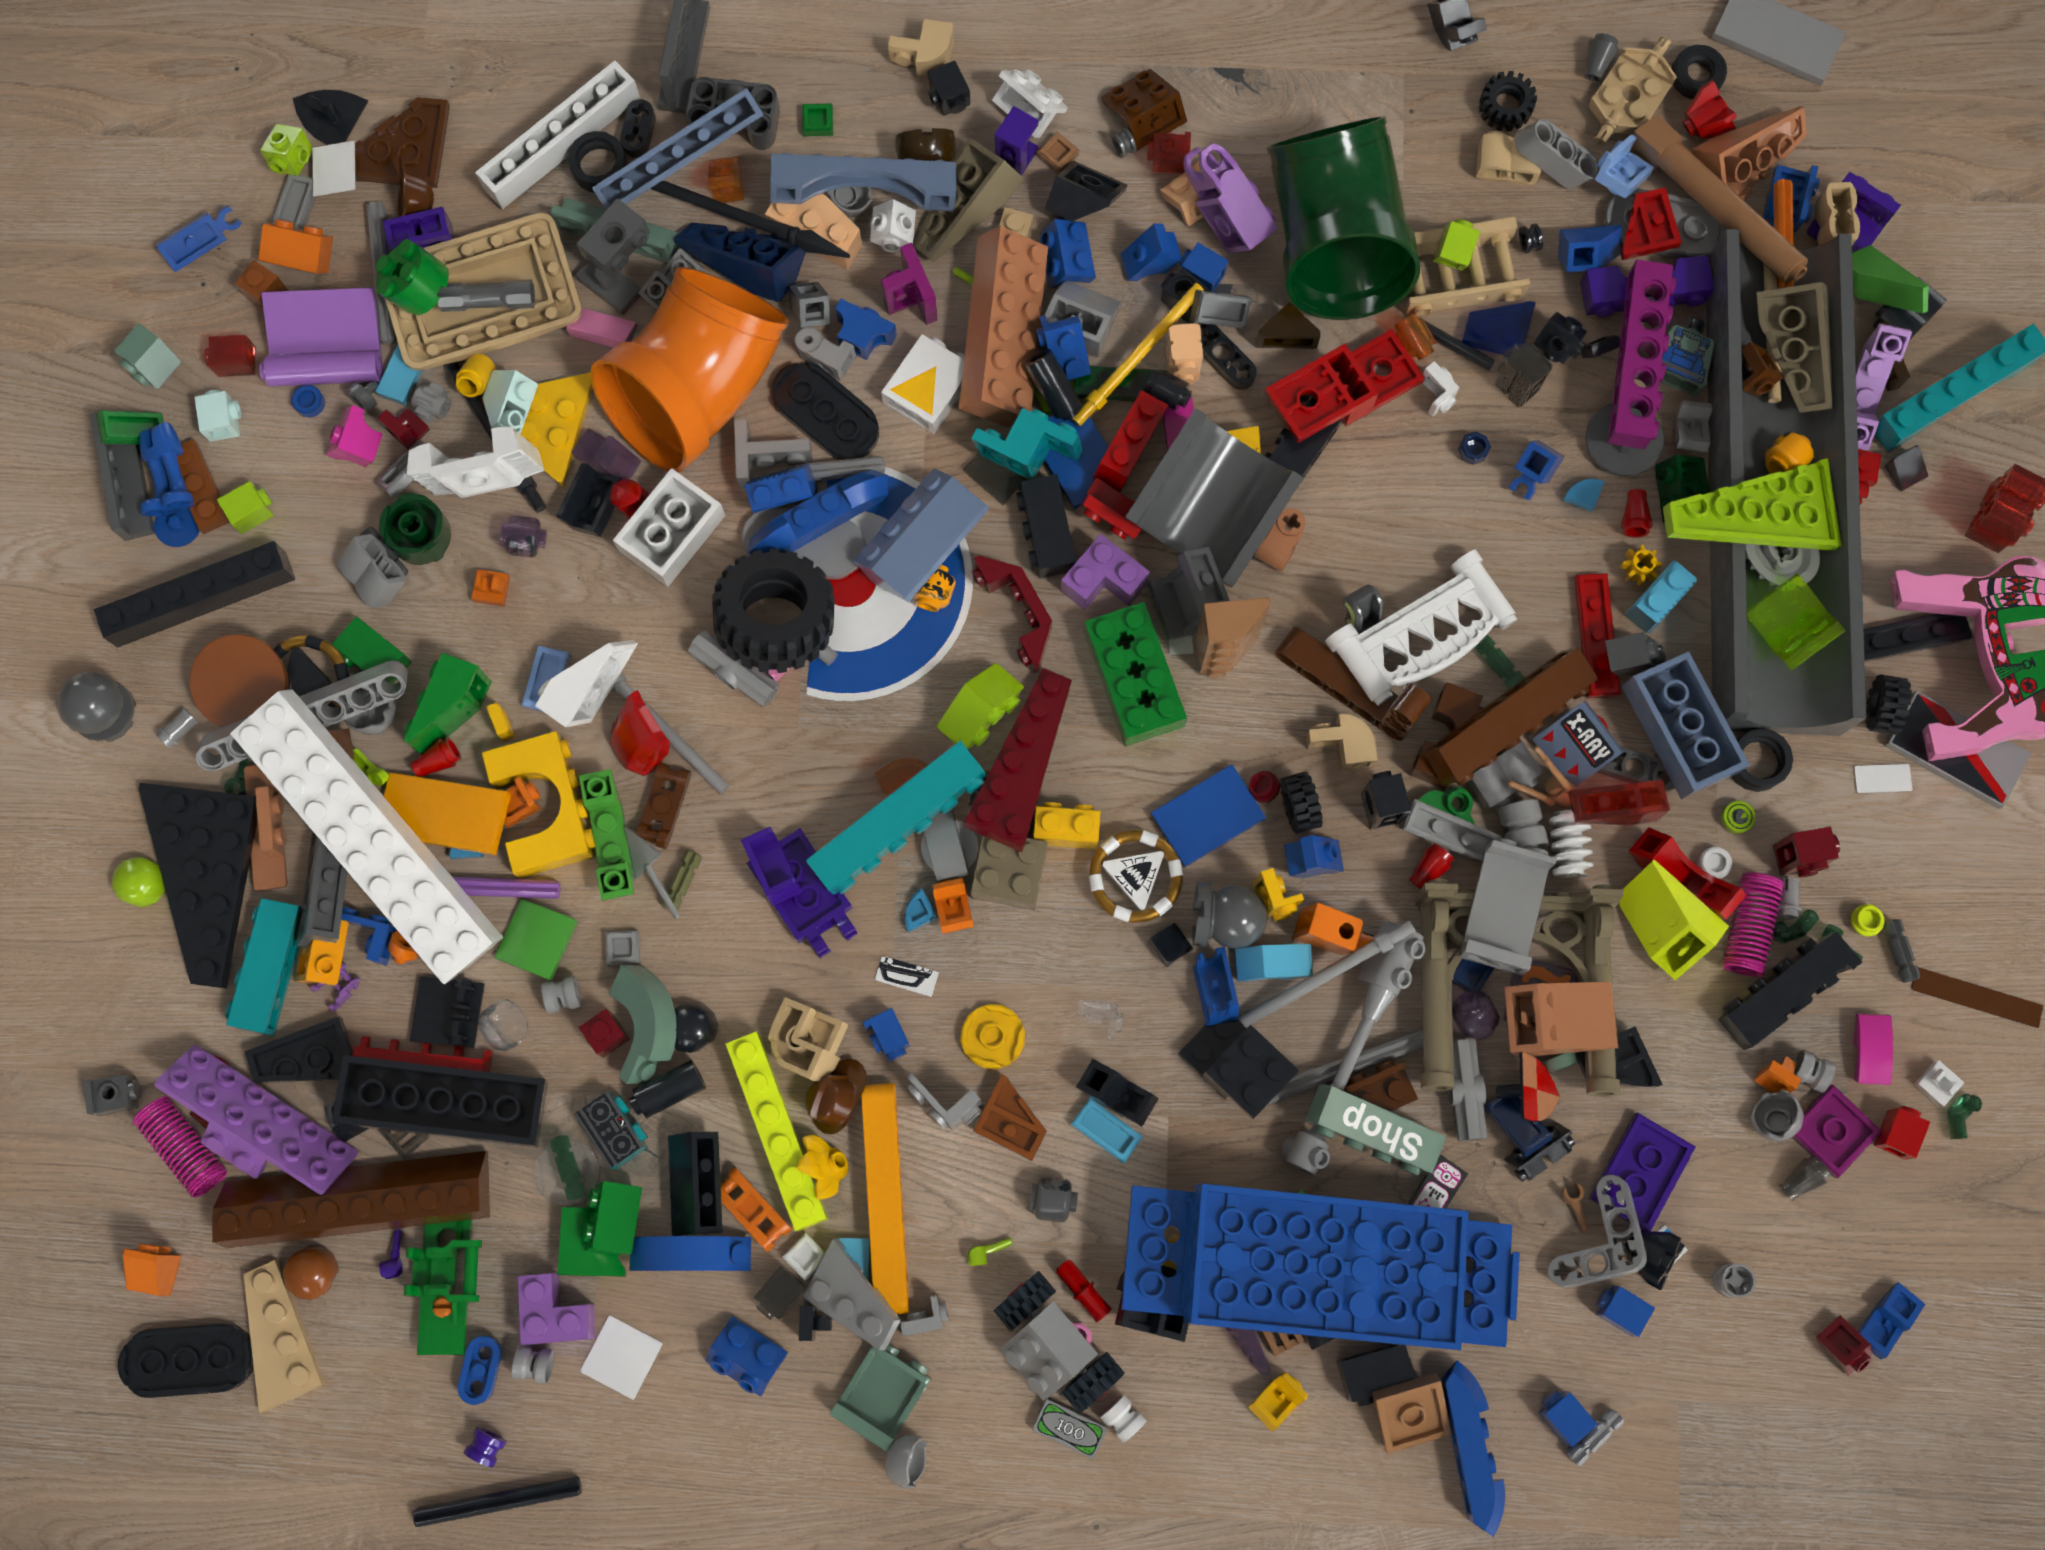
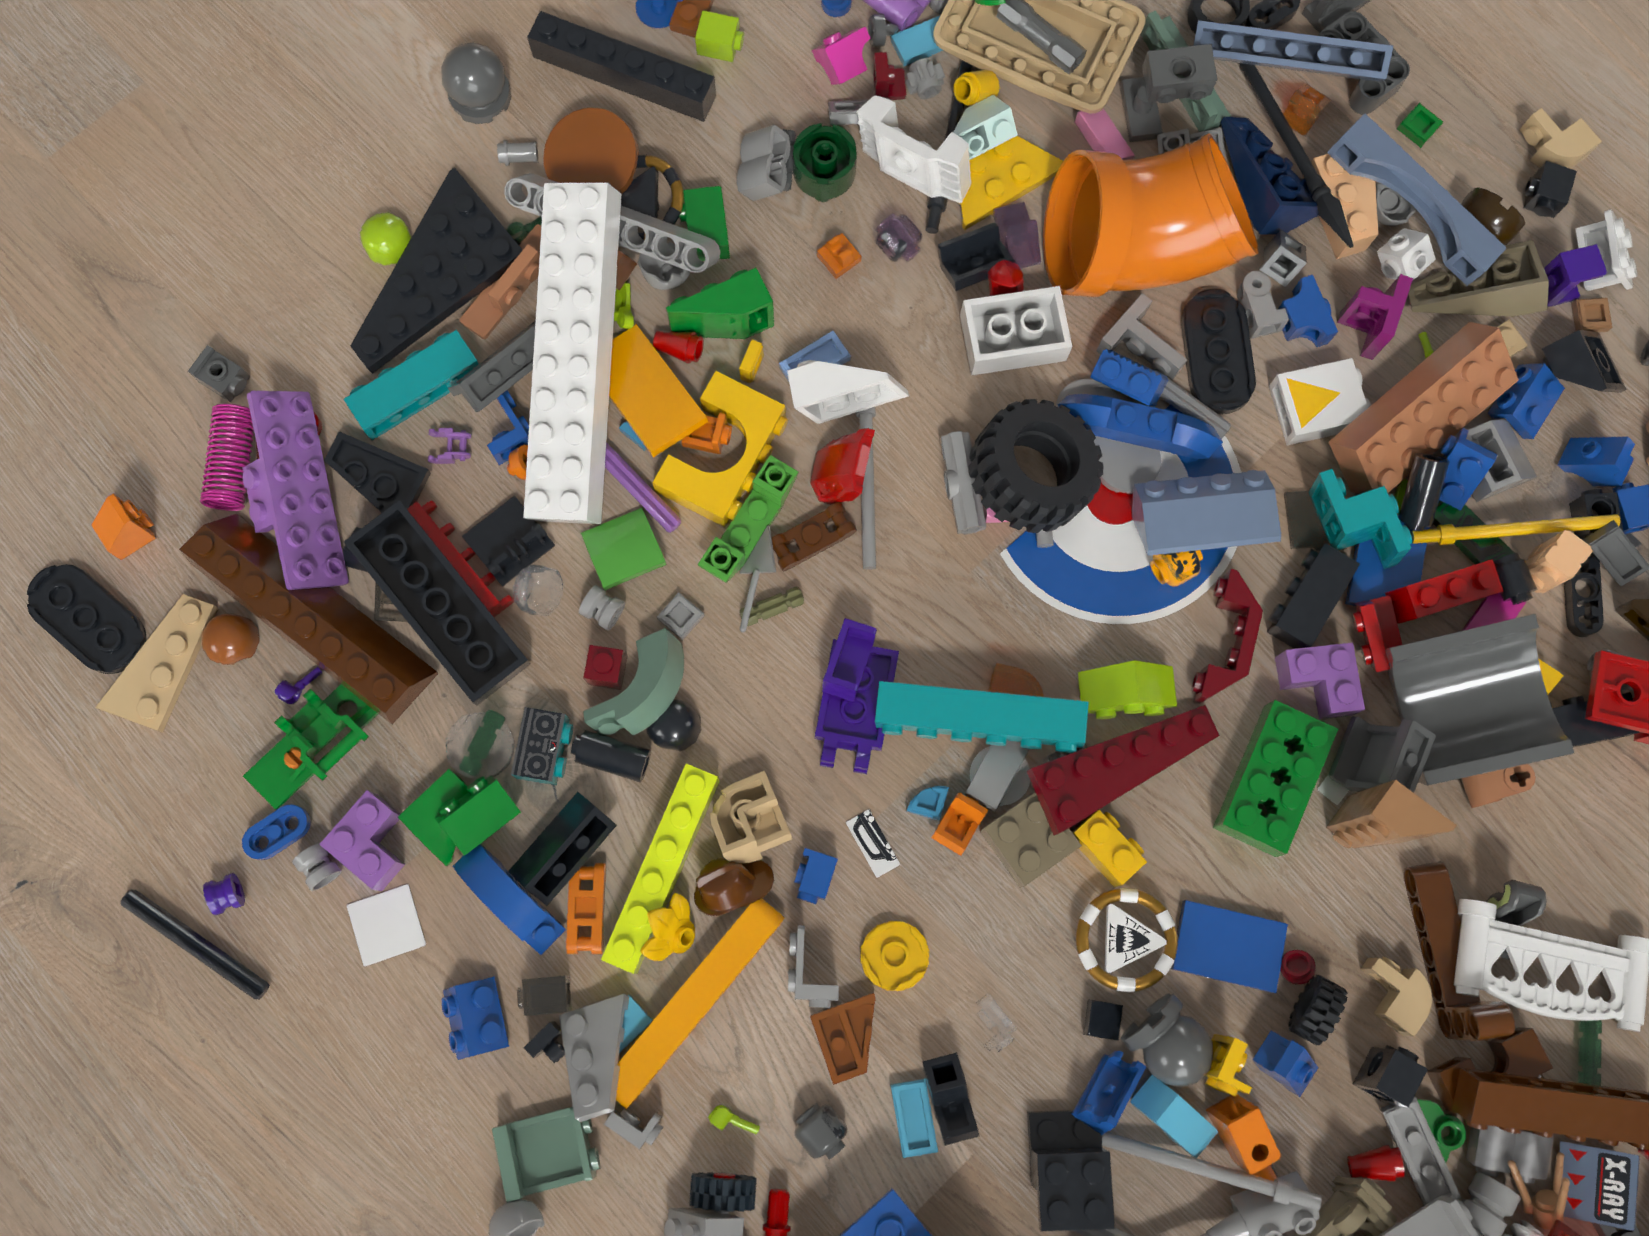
camera: 40 degrees right, 0 degrees up
(321, 960) = (456, 417): light orange bracket -> none
(804, 1256) = (591, 985): white tile -> none

